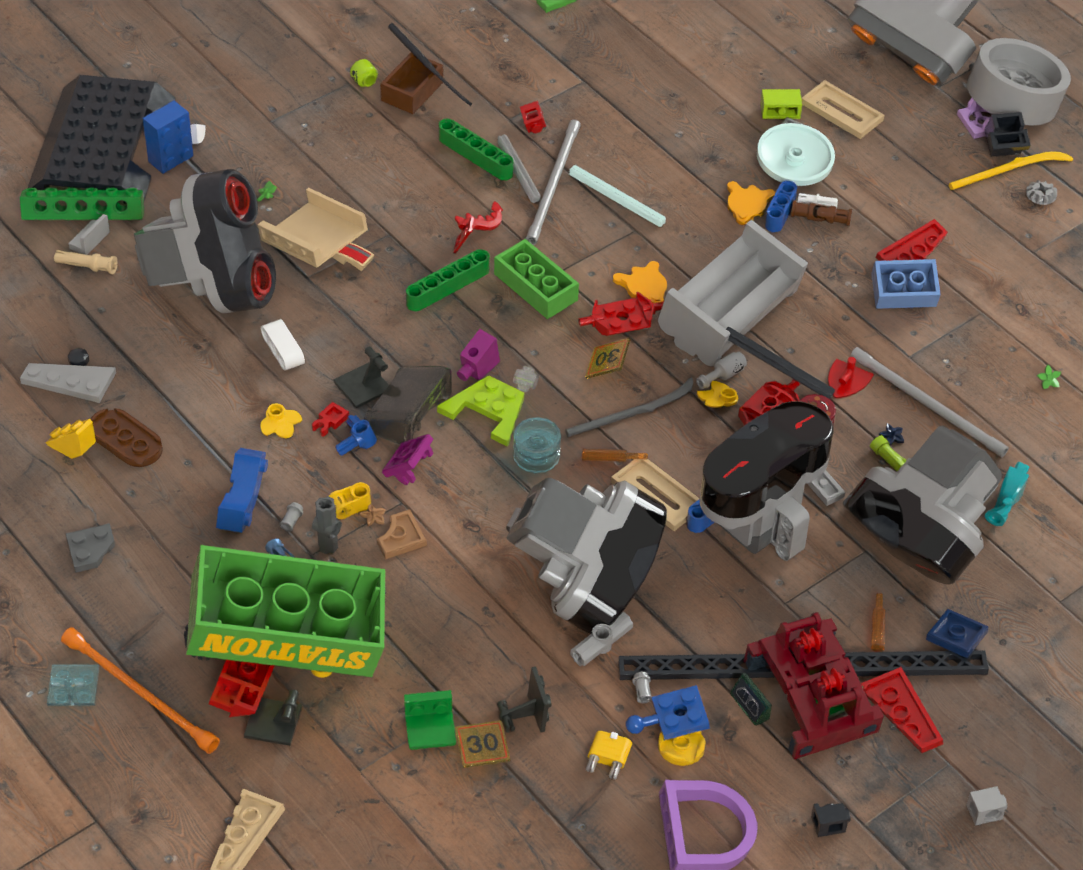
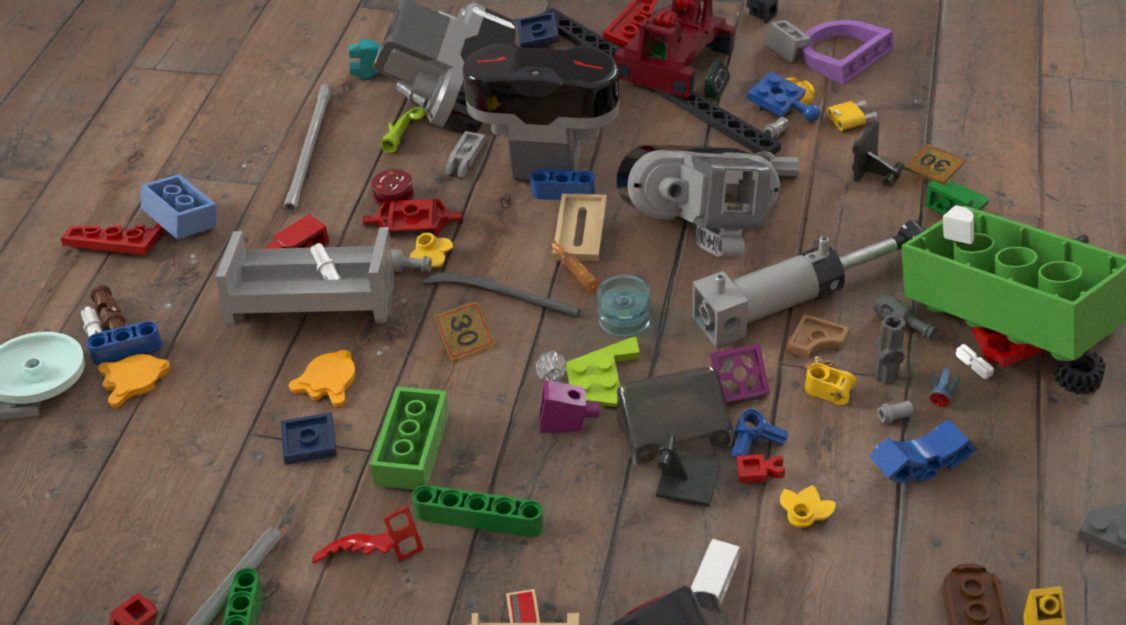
camera: 125 degrees left, 5 degrees down
(353, 595) = (959, 225): none -> white brick
(469, 495) = (727, 306): none -> light grey piece
(535, 228) = (134, 572): light grey piece -> none
(598, 249) = (308, 438): none -> dark blue tile
(617, 195) = (209, 475): light aqua axle -> none
(637, 310) = (379, 350): red plate -> none
(729, 300) = (325, 265): none -> white axle
(754, 787) = (785, 39): none -> light grey panel
(780, 363) = (364, 219): black axle -> none
(804, 332) = (301, 234): none -> red hinge
(847, 378) = (325, 201): red shield -> none
(892, 434) = (368, 147): dark blue plant -> none
(1049, 377) = (216, 103): bright green plant -> none

